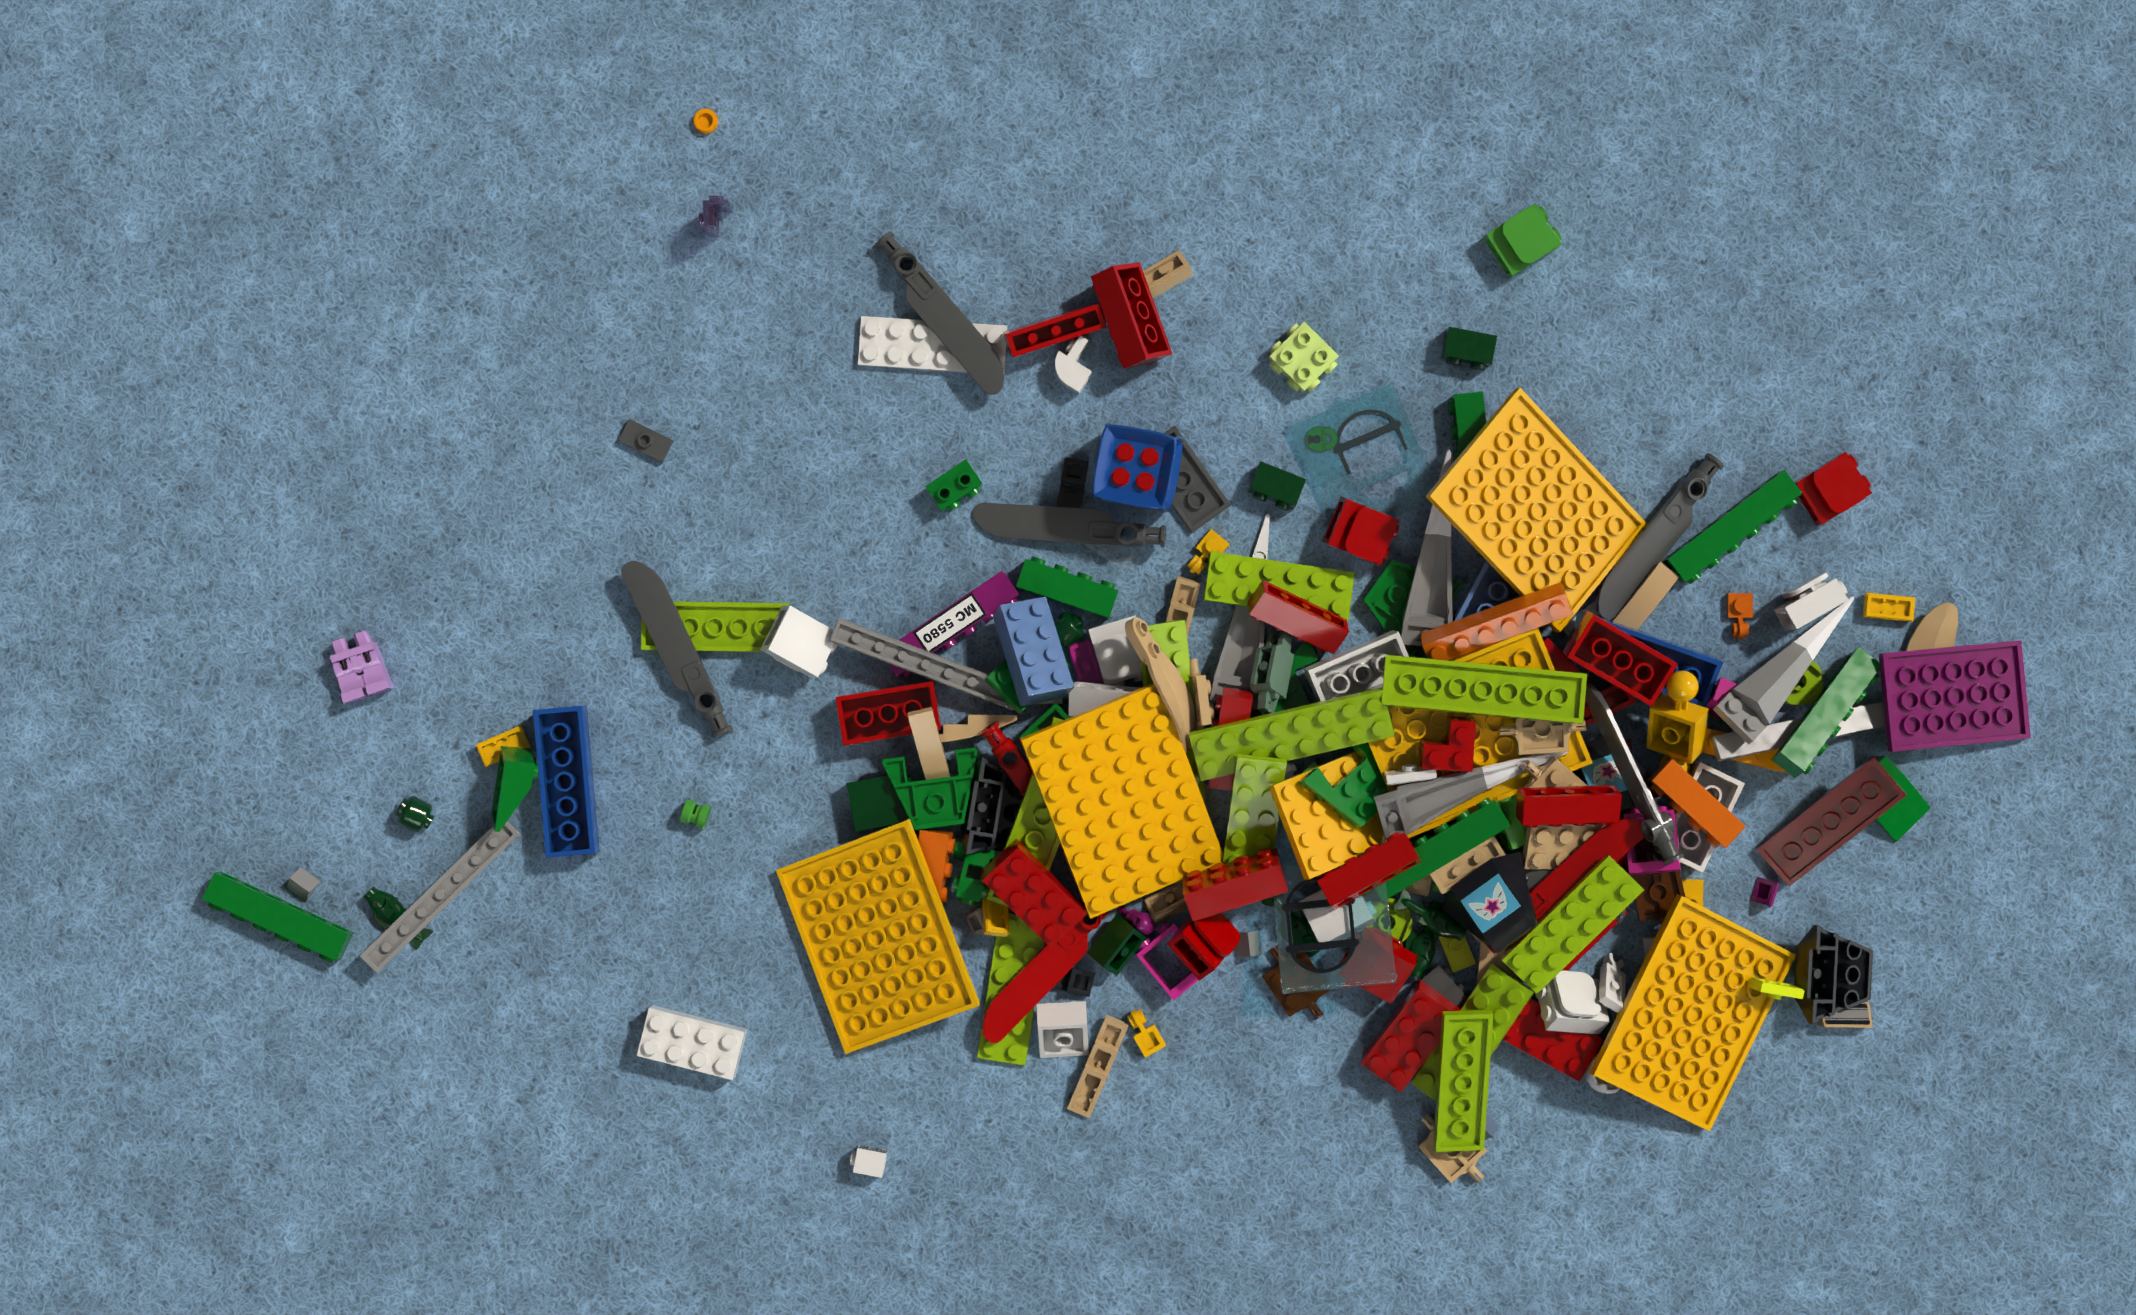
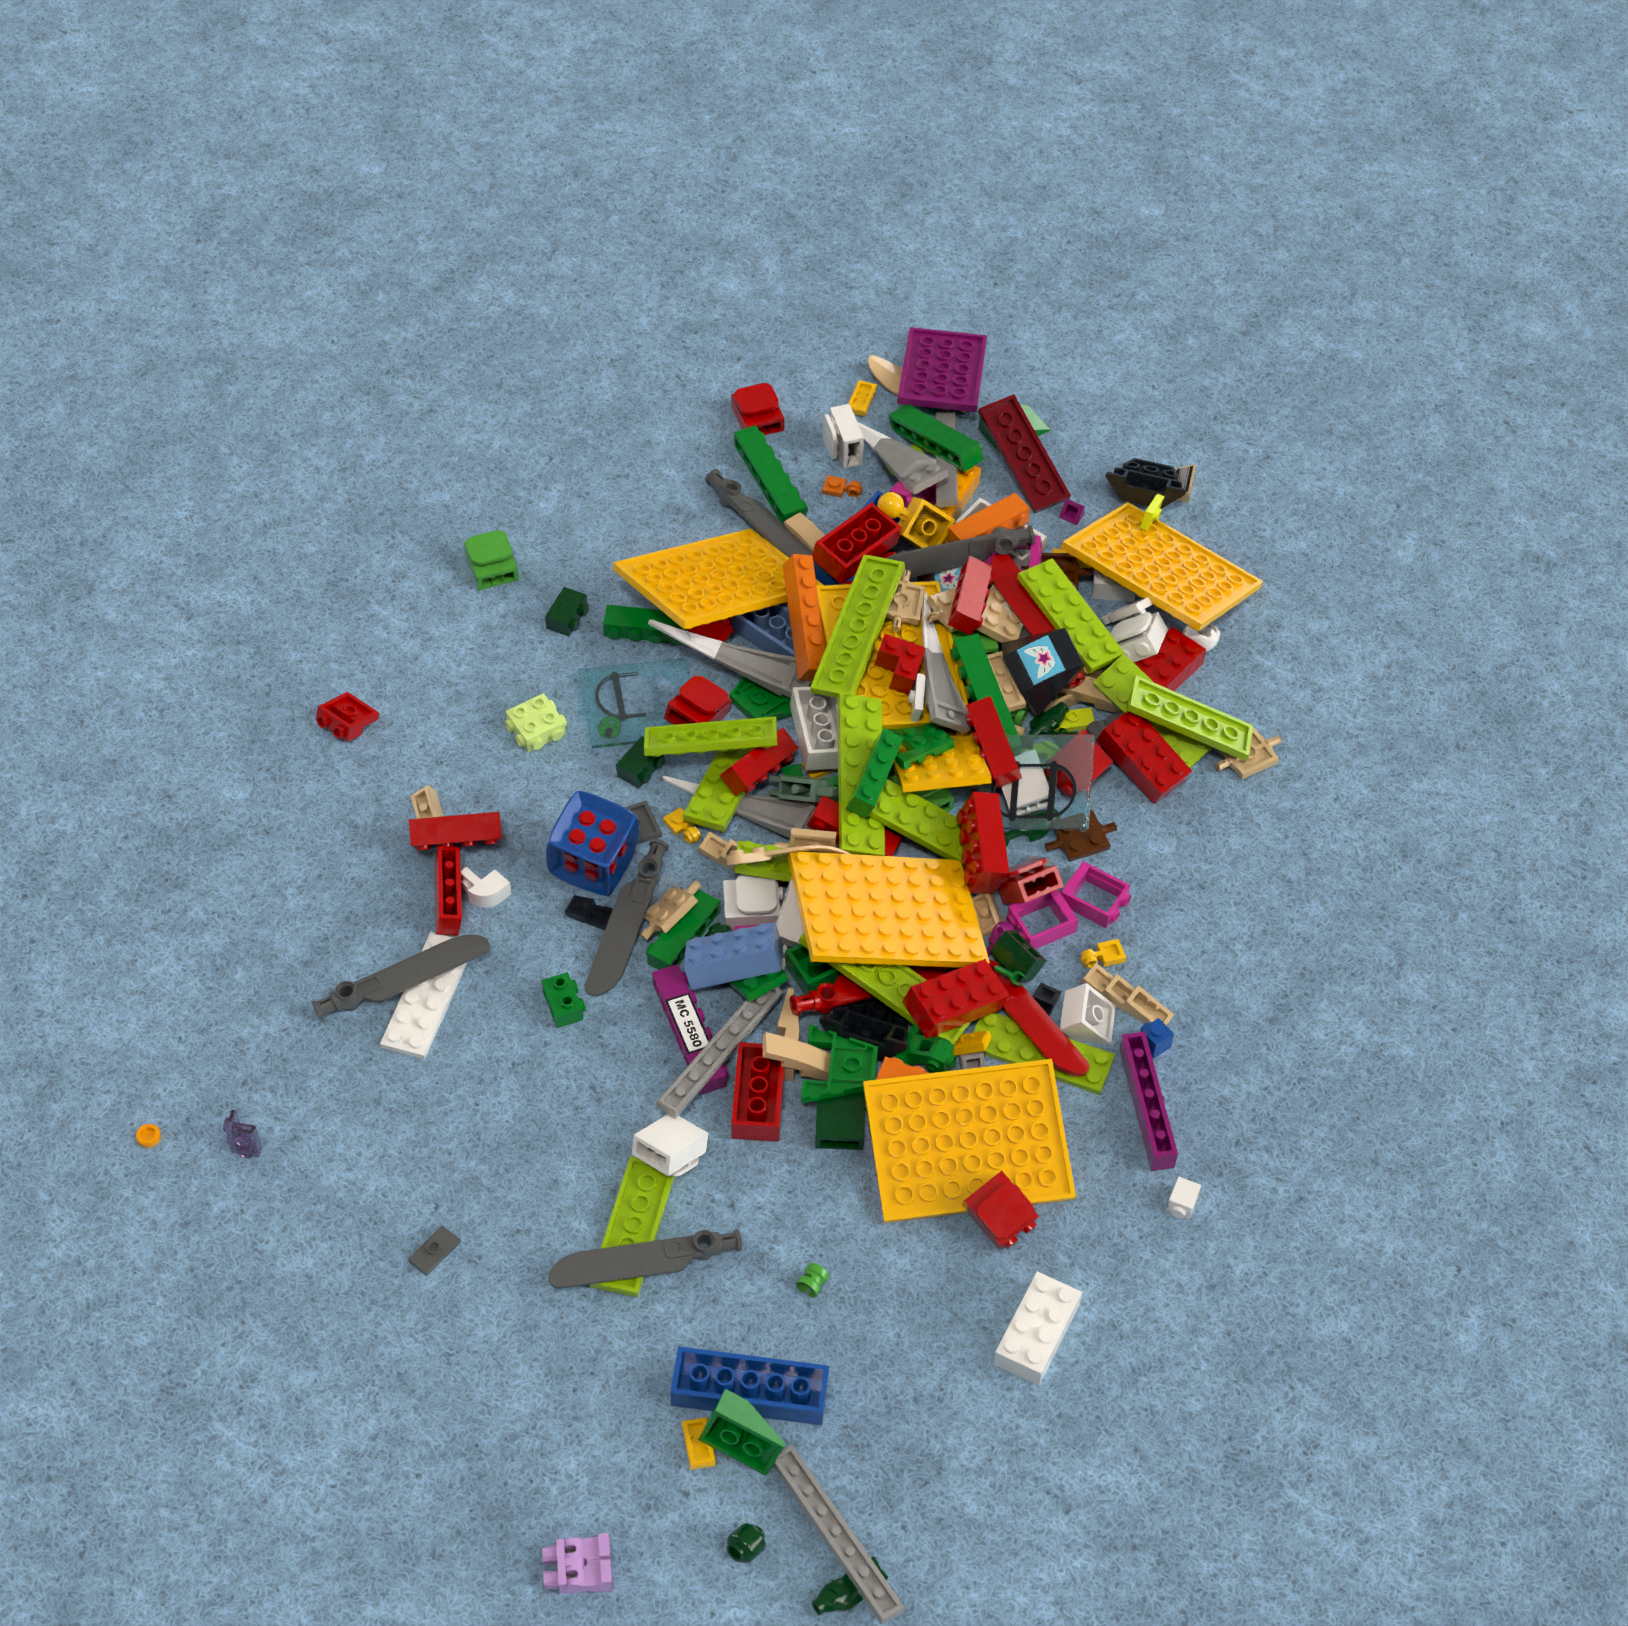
camera: 80 degrees left, 35 degrees down
(806, 983) = (1001, 1210): none -> red brick
(970, 1108) = (1148, 1101): none -> magenta brick
(1051, 1103) = (1158, 1036): none -> blue brick
(1083, 569) = (670, 909): none -> tan plate
(1084, 944) = (1012, 975): none -> green hand
(1227, 988) = (1102, 880): none -> dark pink window
(1262, 148) = (345, 716): none -> red plate
(1284, 751) = (874, 773): none -> green brick
(1308, 558) = (710, 736): none -> lime plate

